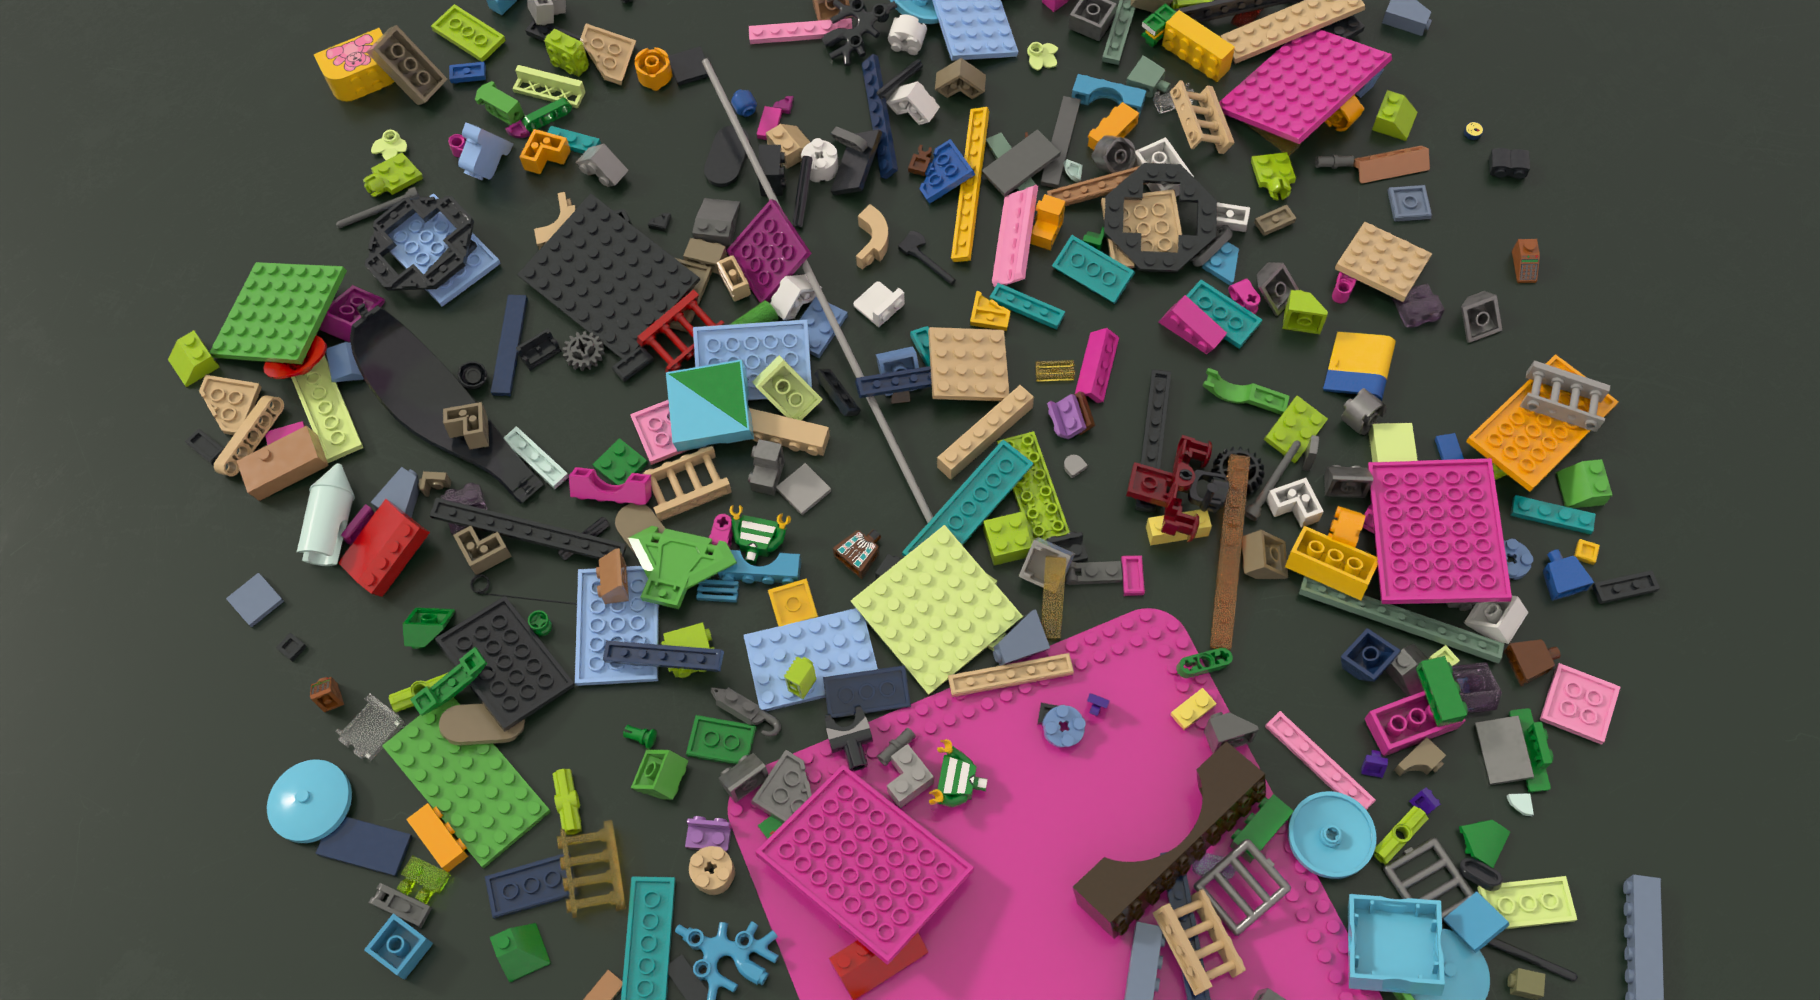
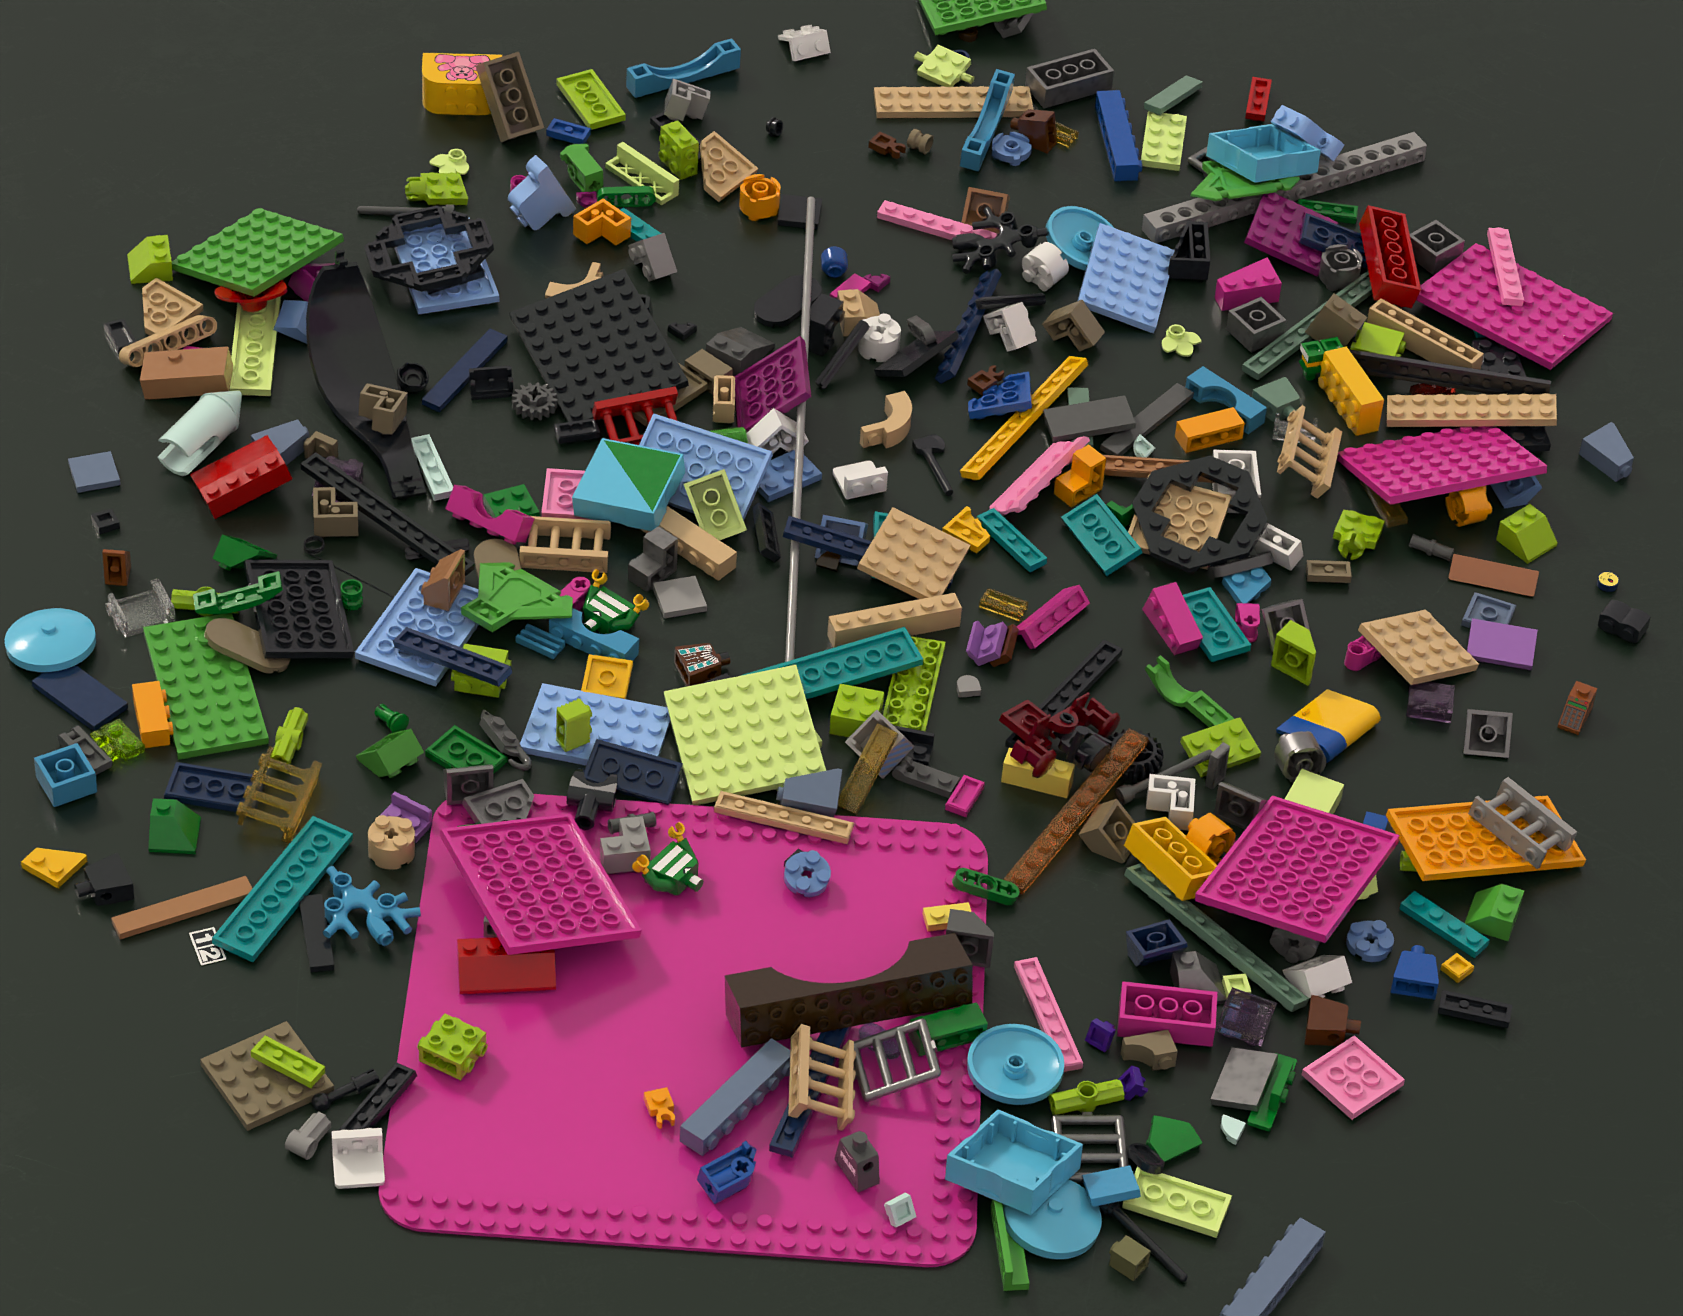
camera: 20 degrees right, 20 degrees down
(357, 524) = (223, 449): magenta tile -> none
(1098, 702) = (853, 870): dark purple tile -> none
(1114, 154) = (1179, 442): flat silver brick -> none
(1437, 227) = (1502, 644): none -> medium lavender tile
(1442, 691) = (1205, 990): green brick -> none

